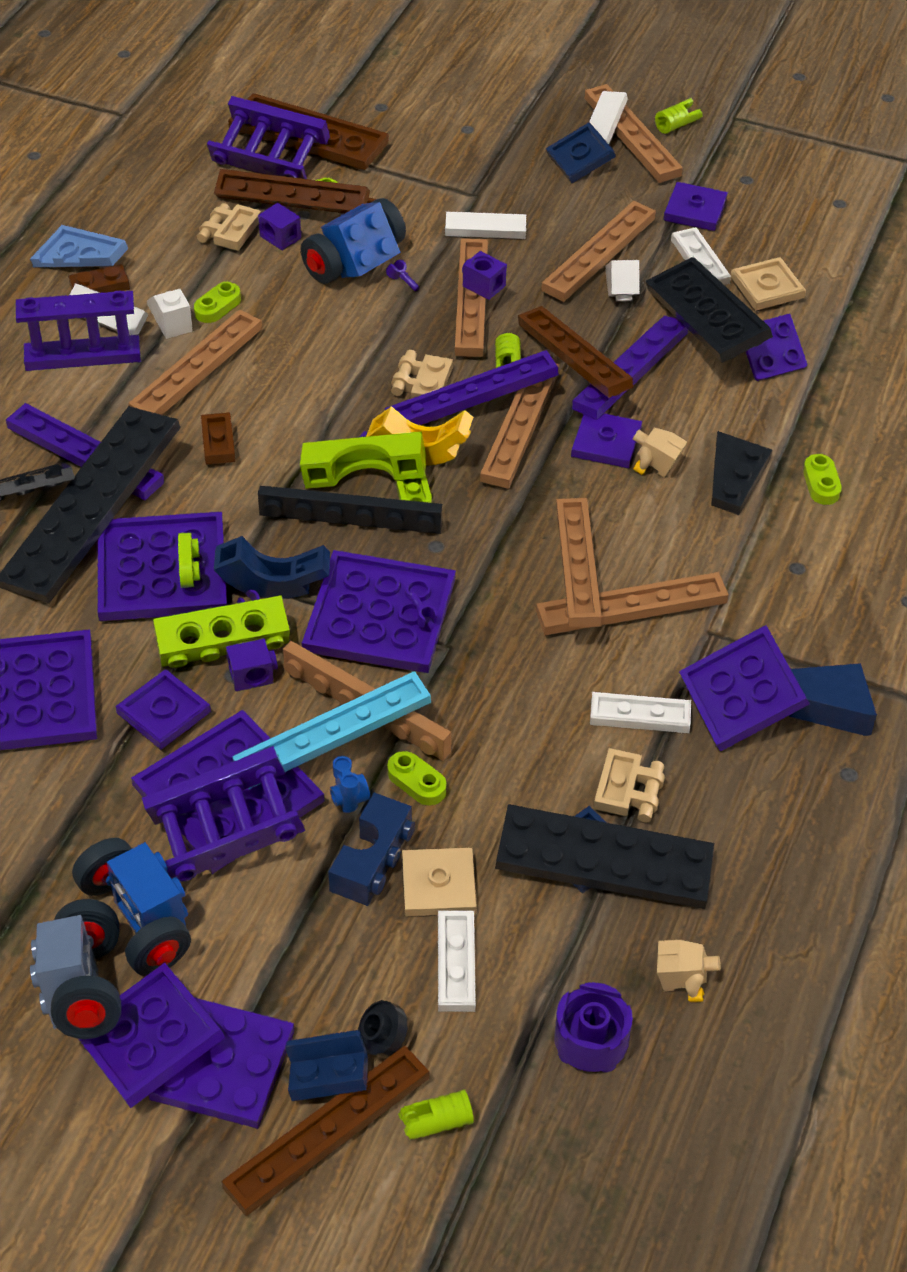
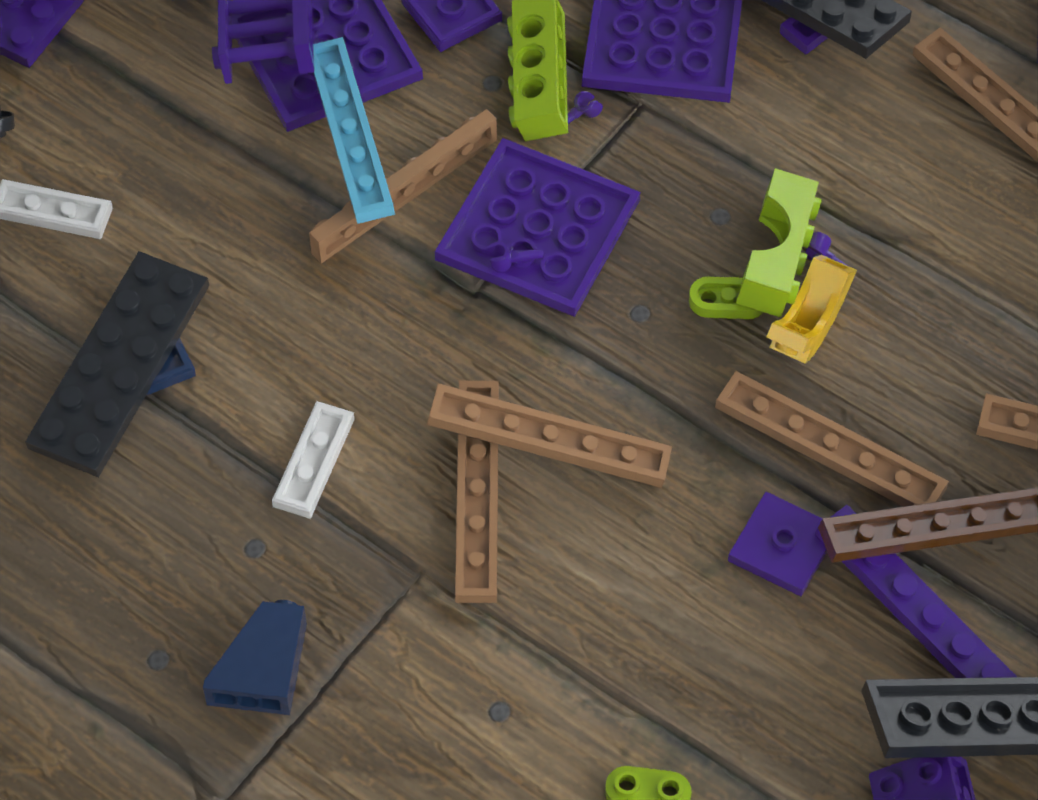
camera: 105 degrees right, 10 degrees up
(188, 569) = (643, 37): lime plate -> none
(218, 438) = (866, 112): reddish brown plate -> none
(251, 664) = (487, 87): dark purple brick -> none
(269, 576) = (619, 116): dark blue arch -> none
(349, 787) = (282, 141): blue plate -> none
(350, 509) = (699, 235): black plate -> none
(362, 873) = (224, 173): dark blue arch -> none
(414, 776) = (292, 219): lime plate -> none
(431, 374) = (941, 364): tan plate -> none
(438, 881) = (149, 212): tan plate -> none
(478, 389) = (887, 392): dark purple plate -> none
(507, 349) = (957, 457): lime hinge -> none
(618, 782) = (214, 403): tan plate -> none
(658, 450) = (734, 587): tan piece -> none
(736, 471) = (687, 686): black wing -> none
(743, 688) = (293, 557): dark purple plate -> none

